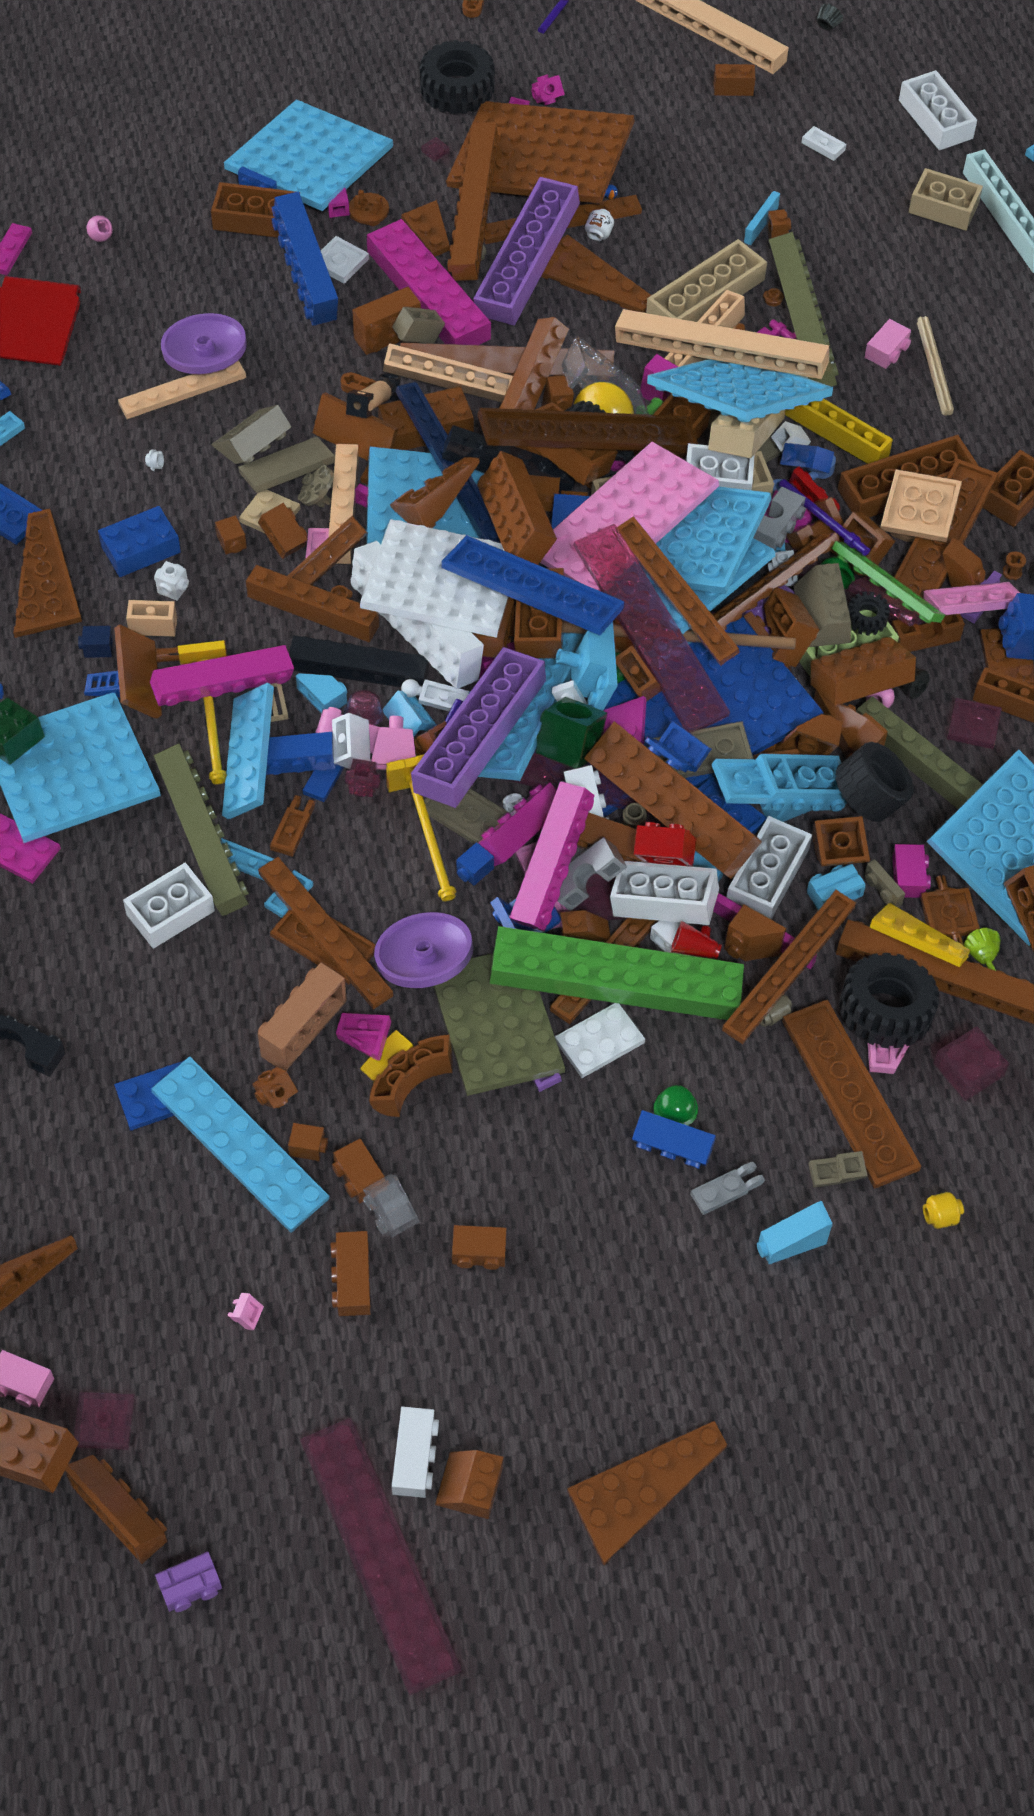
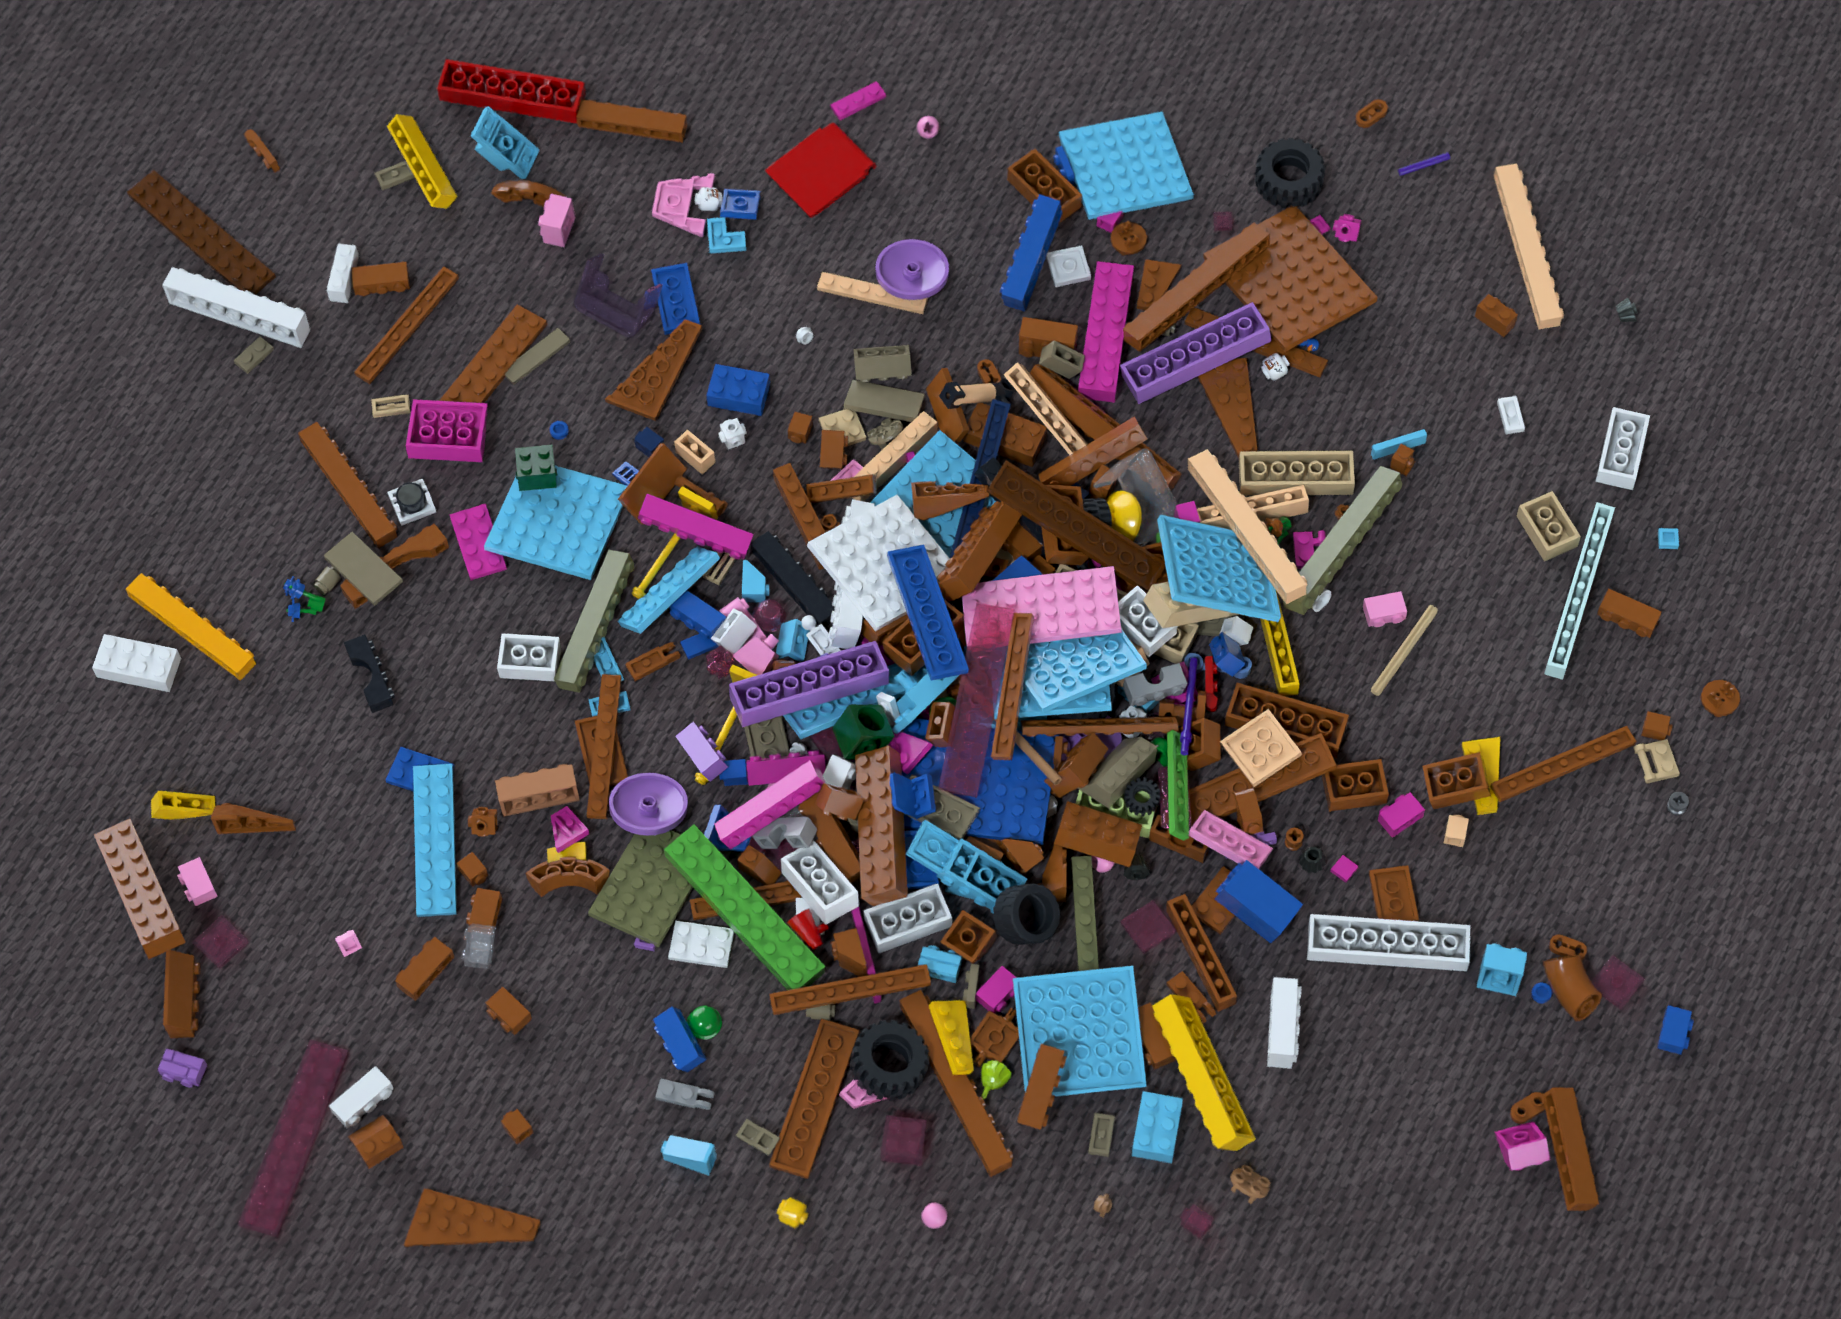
camera: 45 degrees right, 5 degrees up
(429, 864) = (702, 751): none -> brick
(599, 1349) = (516, 1126): none -> dark orange brick
(618, 803) = (839, 801): none -> dark orange brick
(665, 844) = (836, 851): red brick -> none

